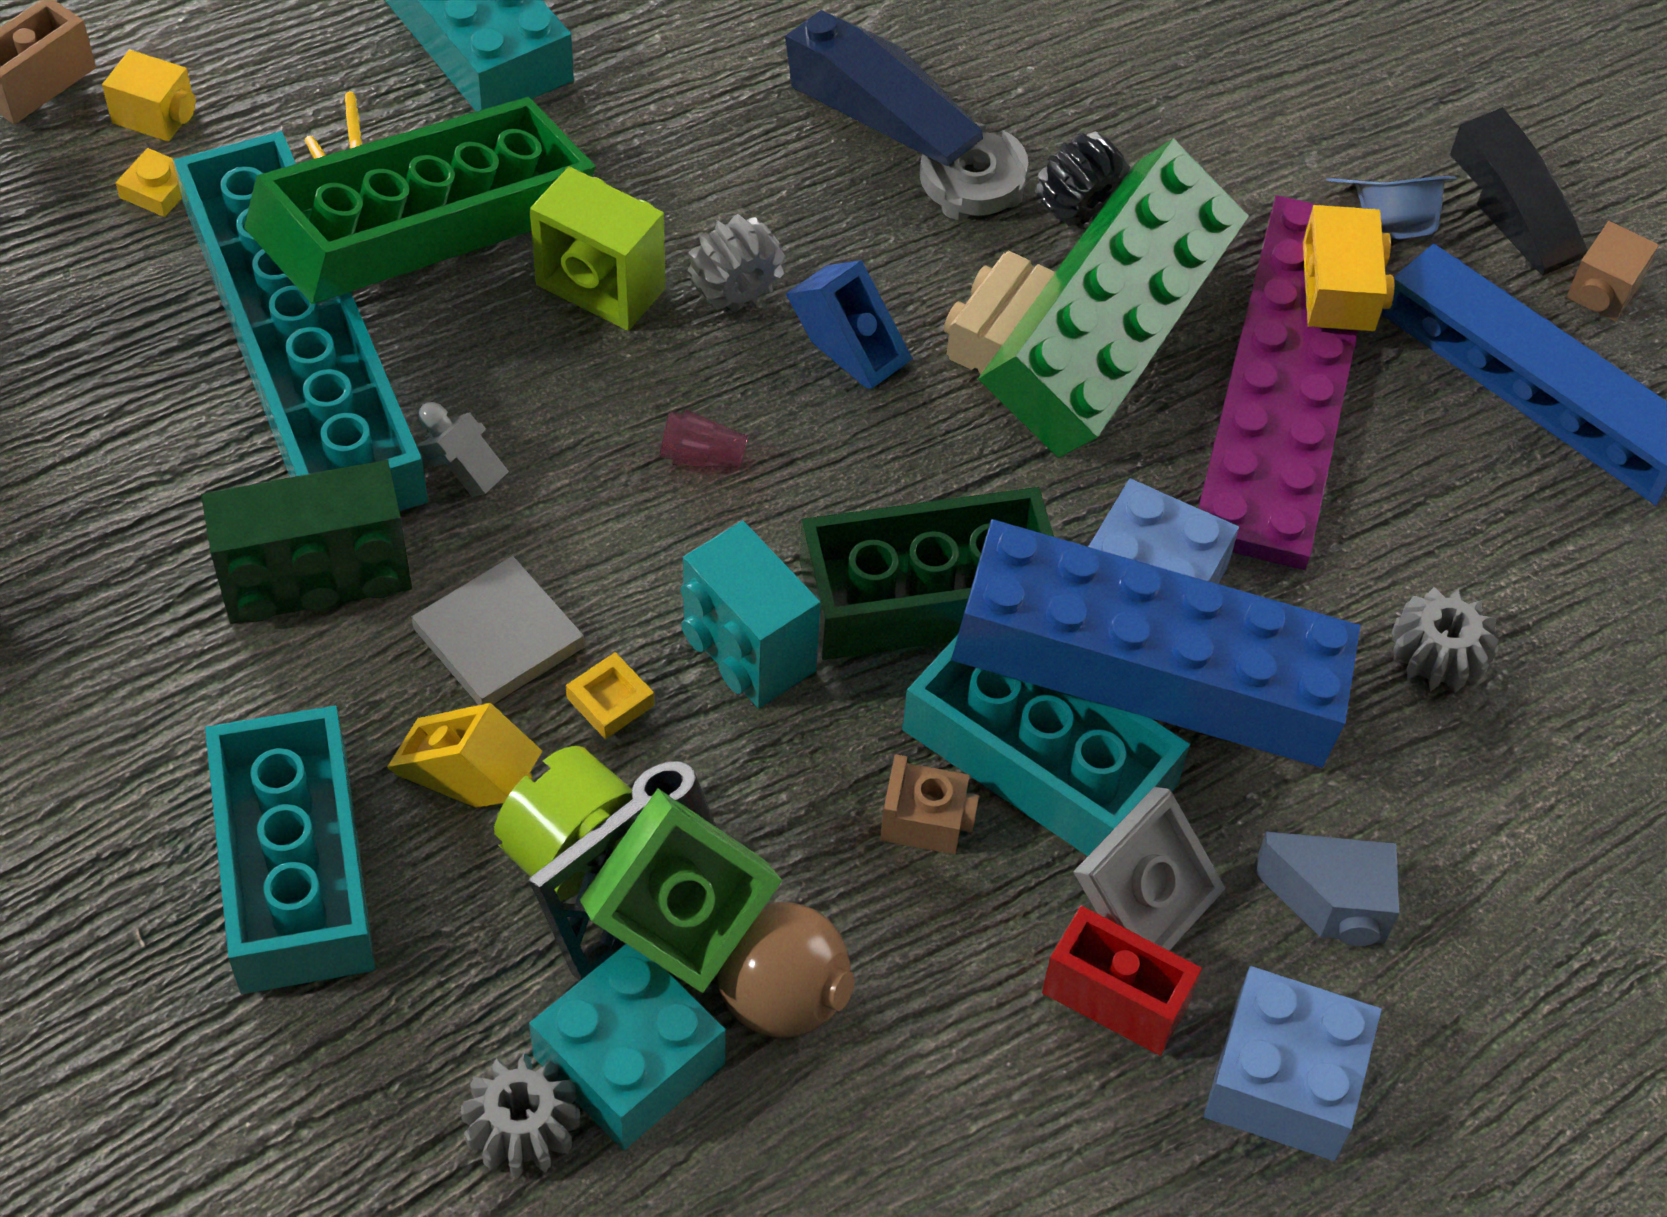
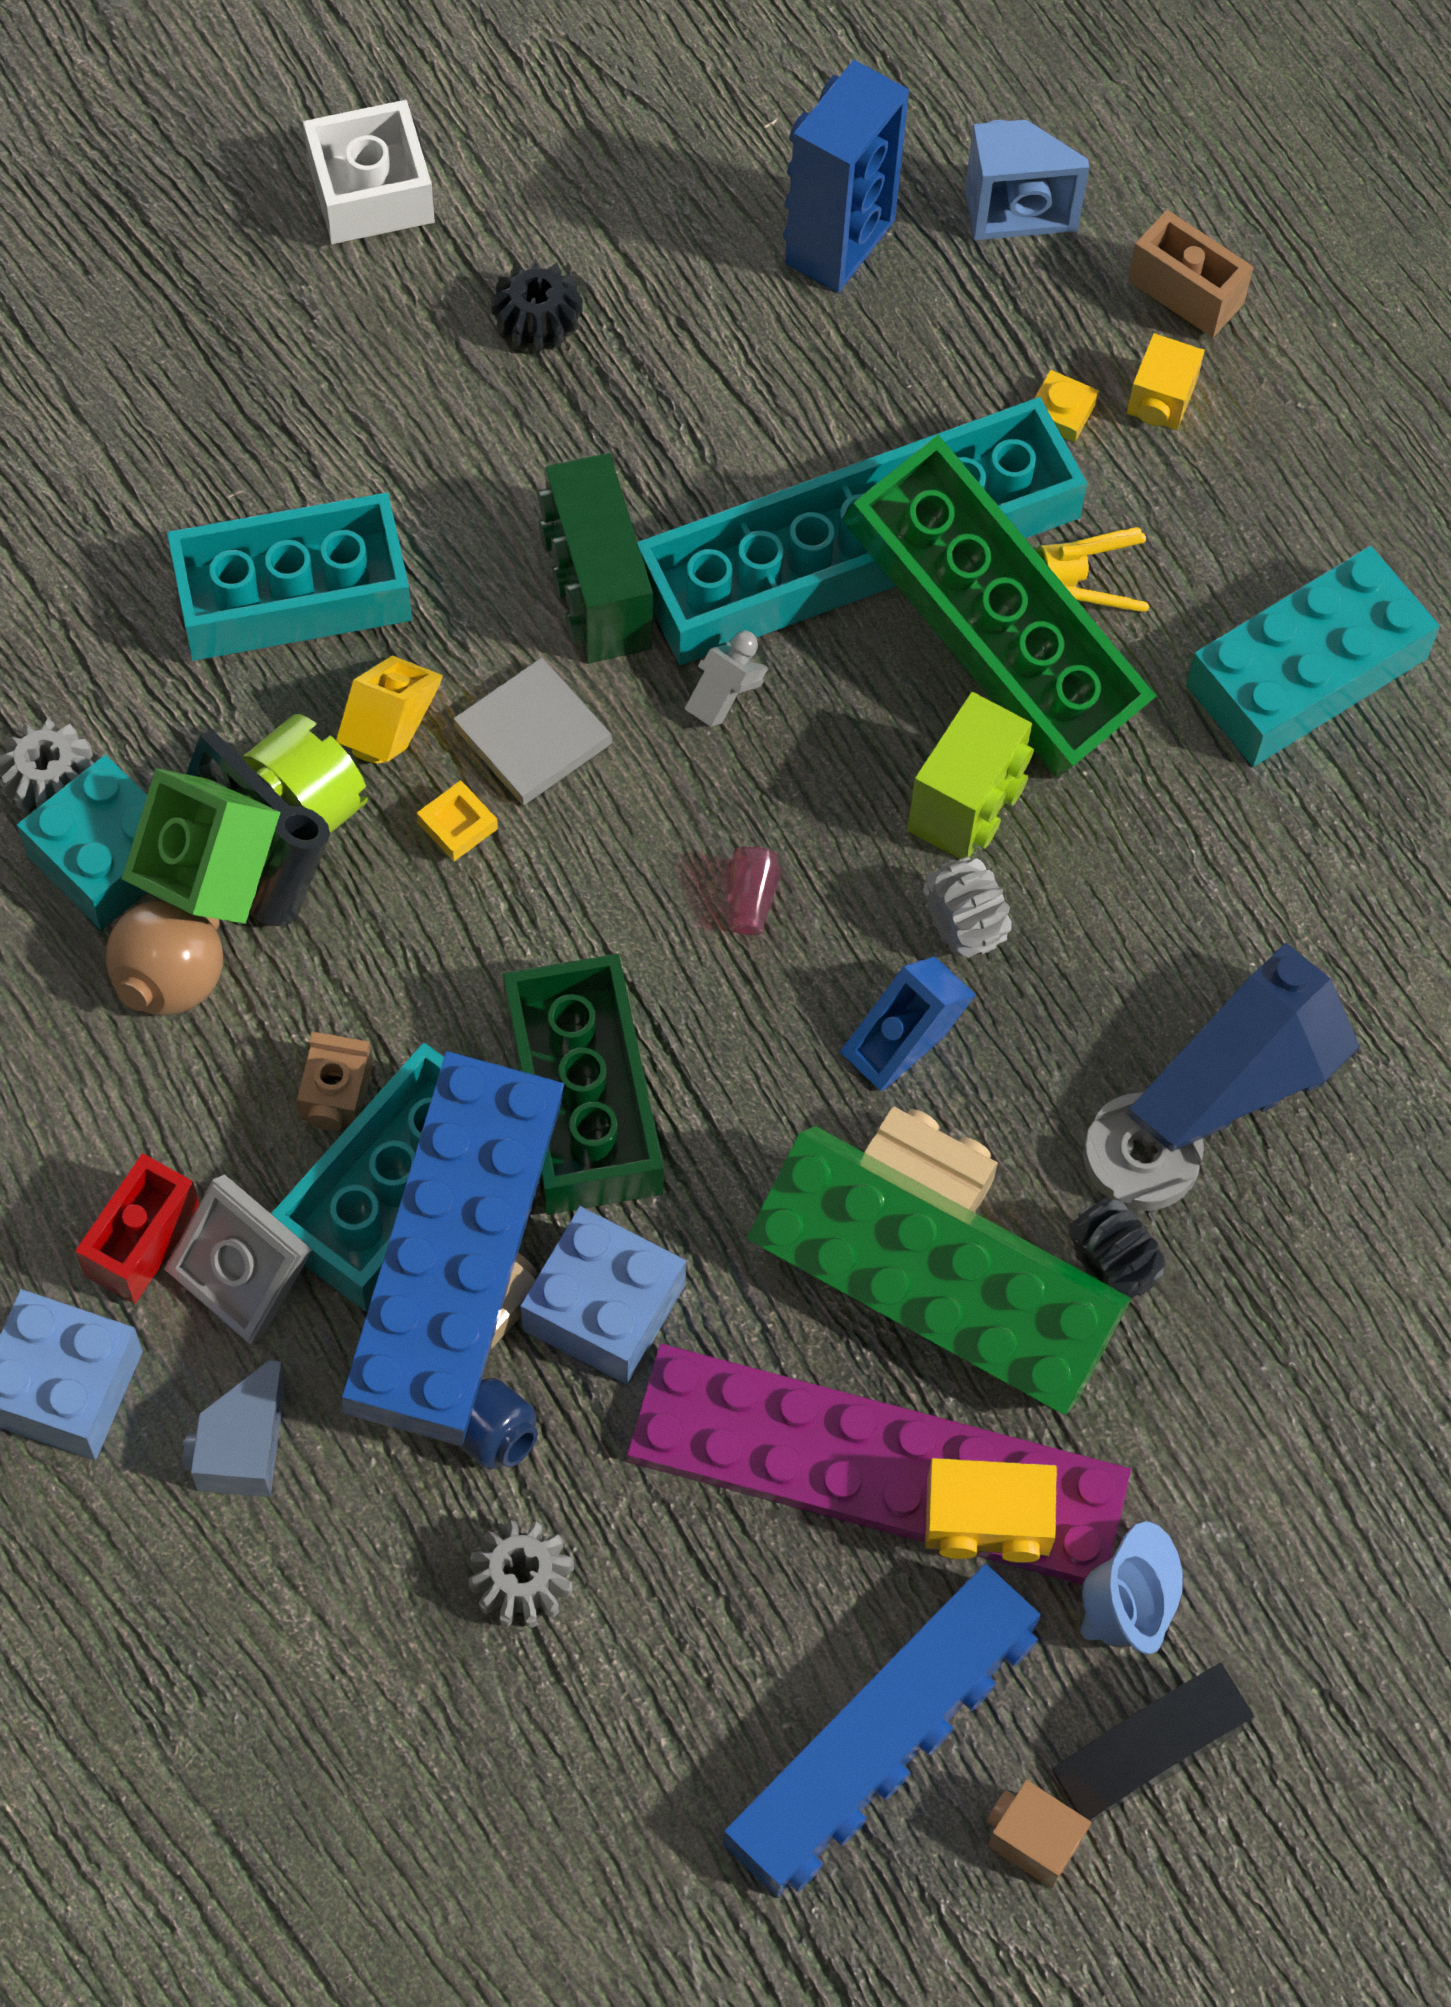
camera: 90 degrees right, 10 degrees up
(749, 614) = (522, 915): teal brick -> none

